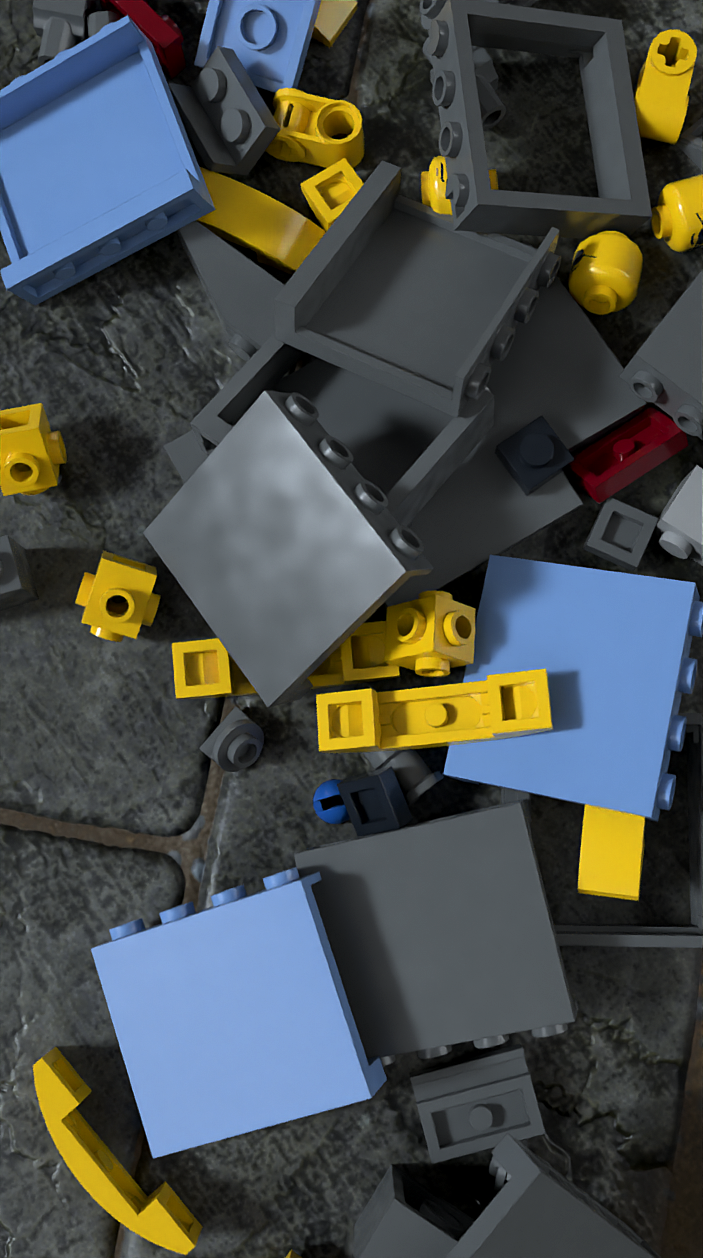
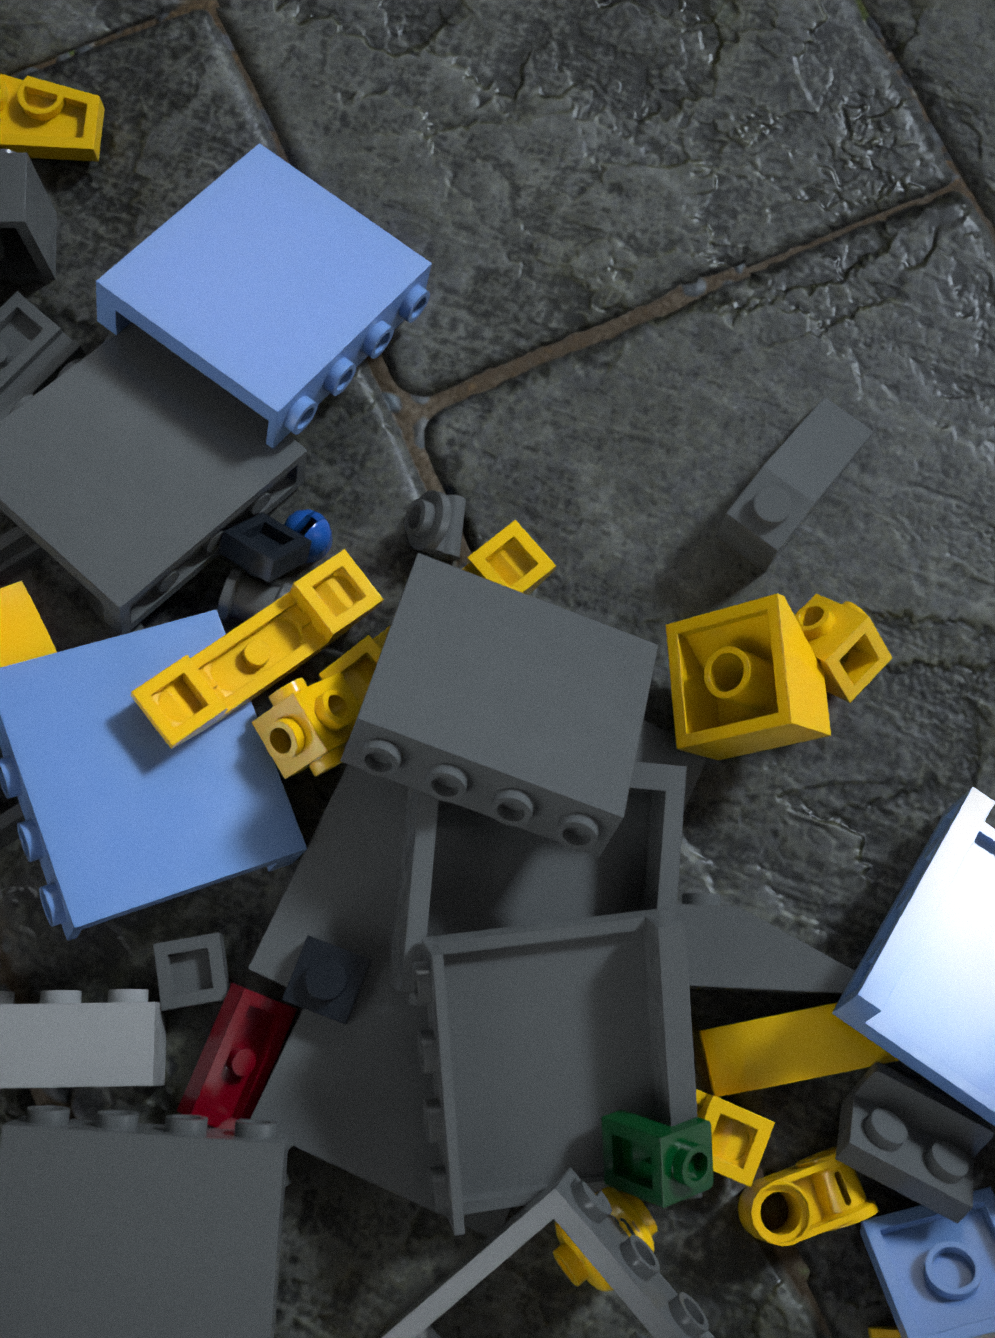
camera: 140 degrees right, 5 degrees down
(103, 459) = (745, 681): none -> yellow slope
(118, 577) = (636, 574): yellow brick -> none
(157, 1218) = (229, 109): yellow slope -> none
(399, 192) = (656, 1159): none -> dark green bracket
(607, 271) = (384, 1252): yellow head -> none

